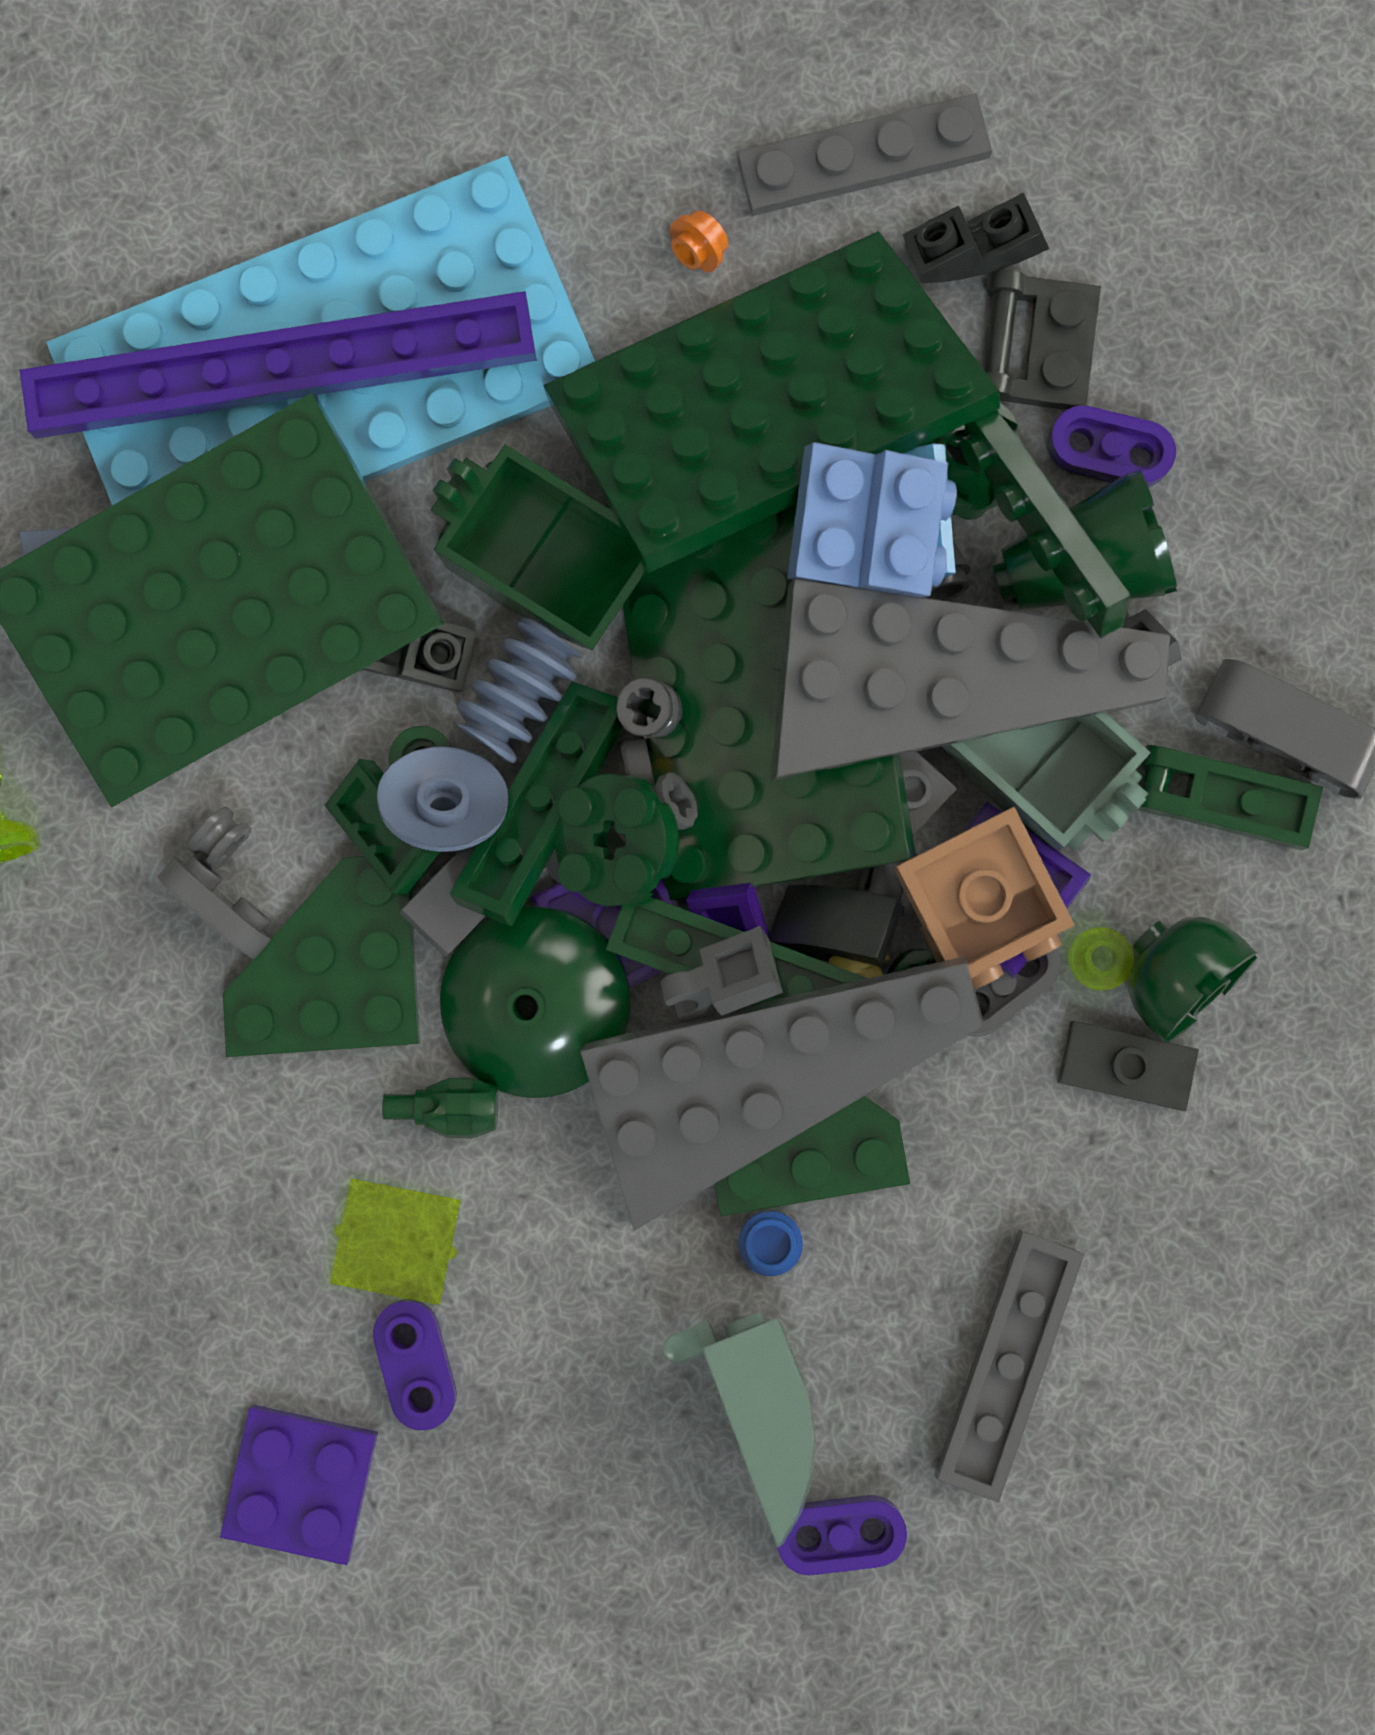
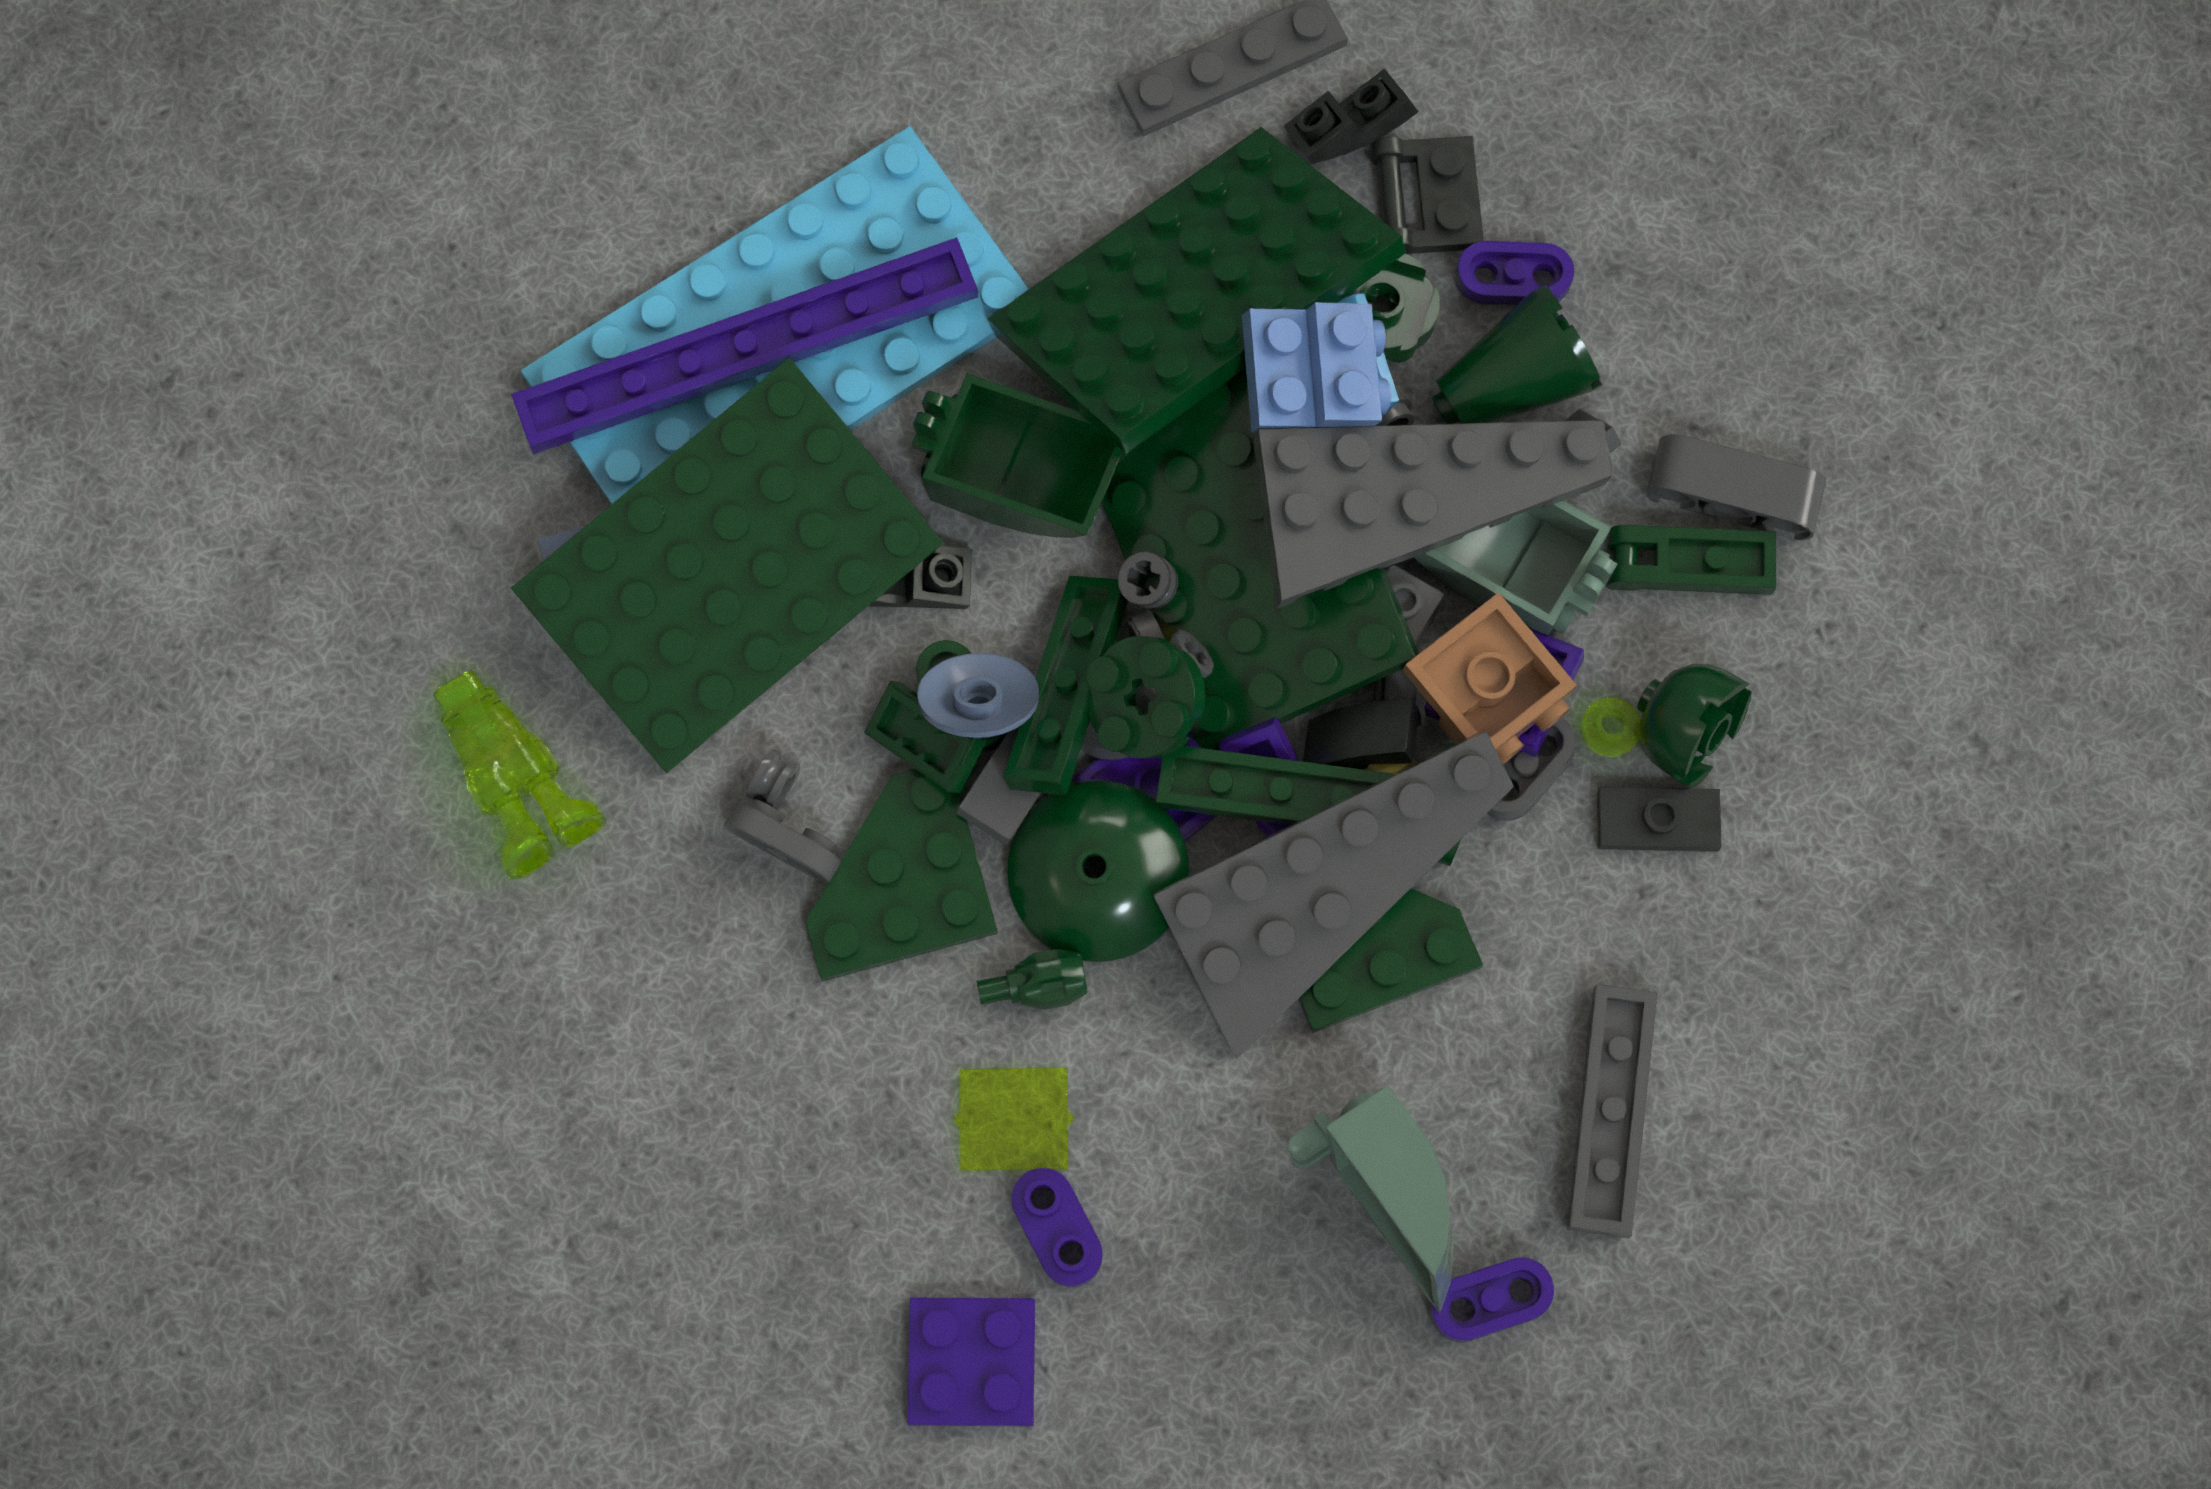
camera: 10 degrees left, 10 degrees down
(517, 688) = (1020, 589): sand blue piece -> none
(698, 241) = (1100, 166): orange plate -> none
(732, 977) = (1276, 793): dark grey plate -> none
(770, 1243) = (1365, 1046): blue plate -> none
(1053, 532) = (1475, 345): dark green plate -> none

